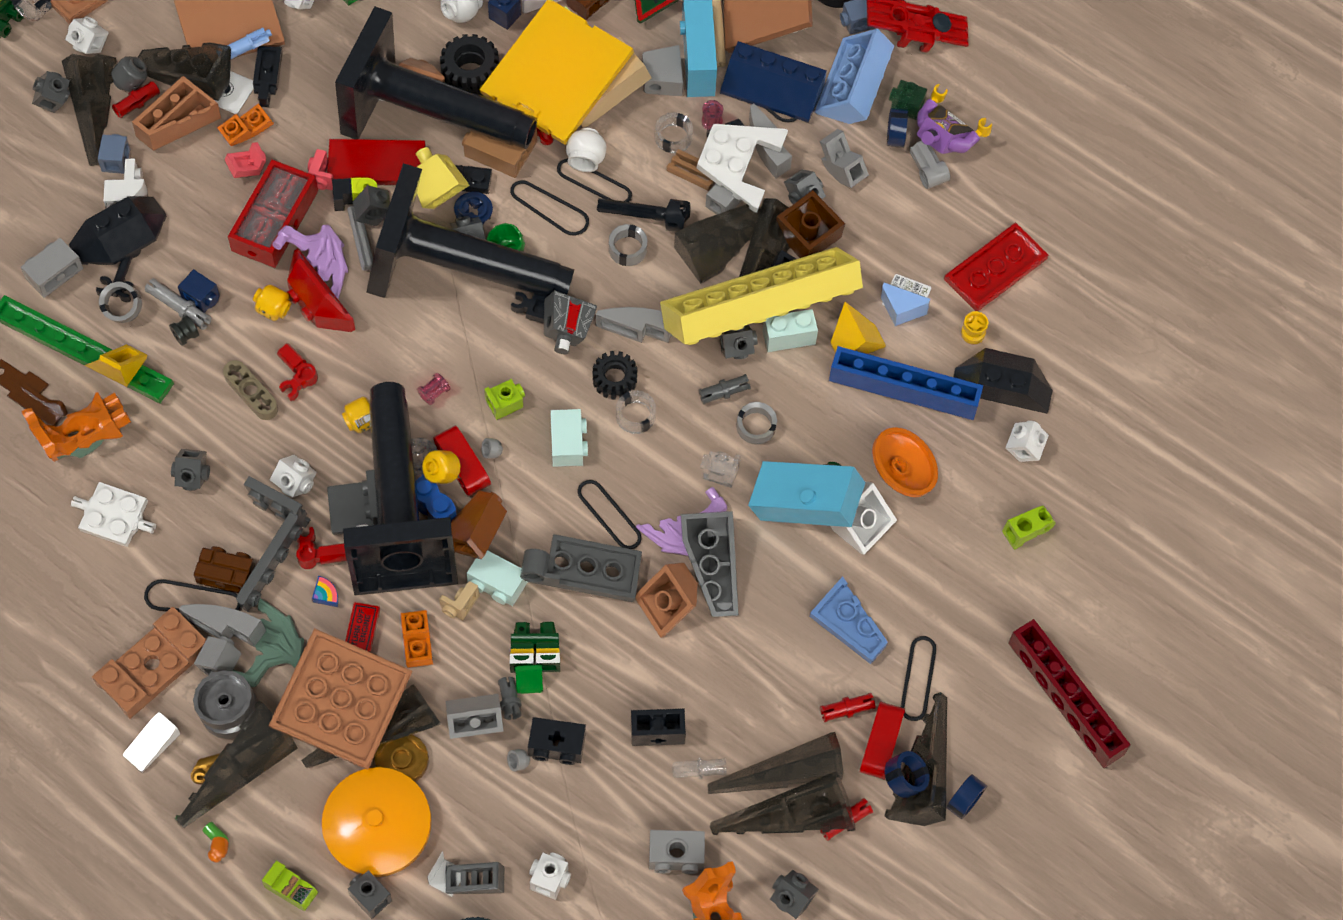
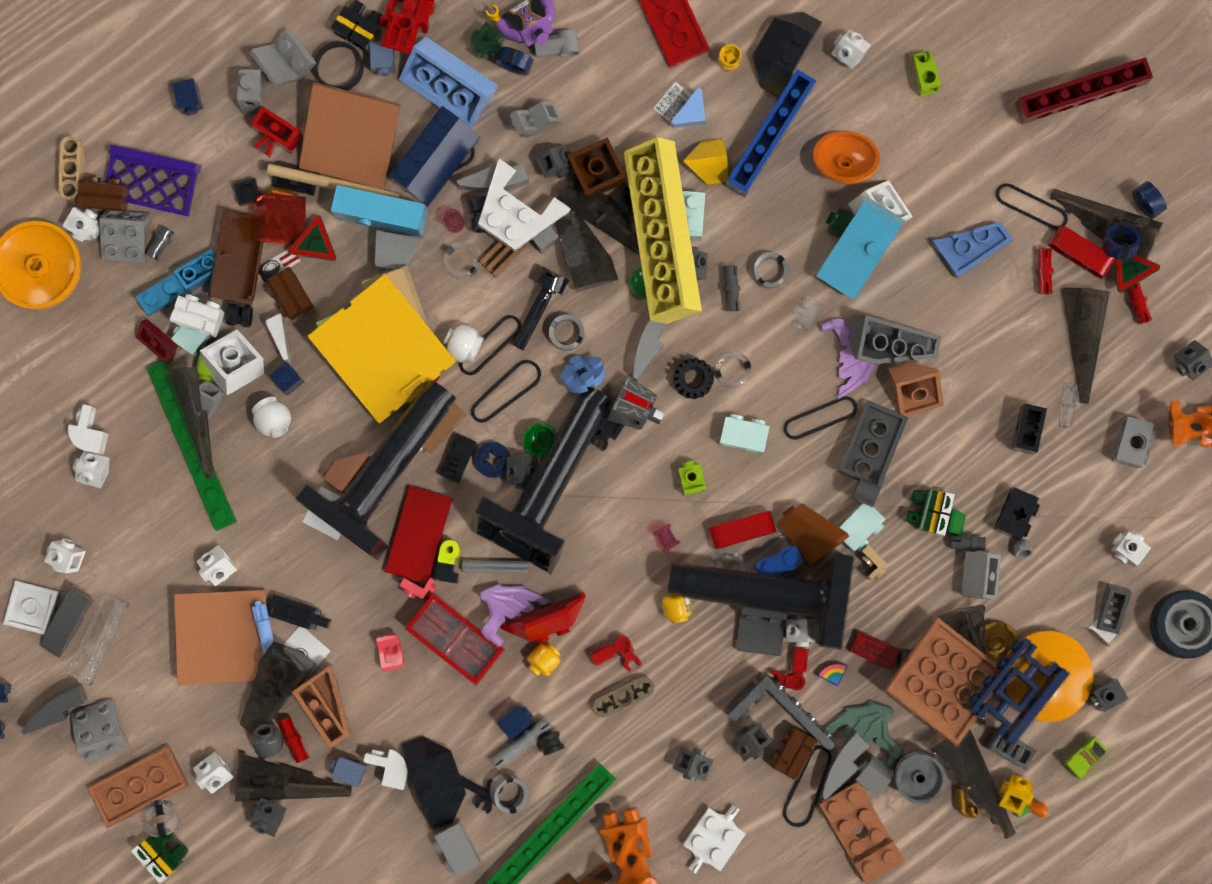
camera: 65 degrees left, 20 degrees up
(119, 364) = (573, 806): yellow slope -> none
(151, 742) = (931, 845): white slope -> none
(227, 521) = (751, 742): none -> dark grey brick
(229, 814) = (1016, 793): none -> yellow brick
(247, 126) = (347, 645): orange slope -> none
(272, 800) = (995, 744): none -> dark grey slope
(293, 476) = (723, 676): white brick -> none
(337, 792) = (1031, 702): none -> dark blue fence
(371, 205) = (471, 549): dark grey brick -> none
(416, 638) = (894, 606): orange slope -> none
(438, 179) = (461, 484): light yellow torso -> none
(441, 467) = (754, 549): yellow head -> none
(464, 51) = (326, 418): black tyre -> none
(491, 448) = (736, 502): light grey hinge -> none
(589, 265) = (582, 373): none -> medium blue plate
(812, 806) = (1125, 326): clear smoke wedge -> none
(878, 799) = (1133, 271): none -> piece

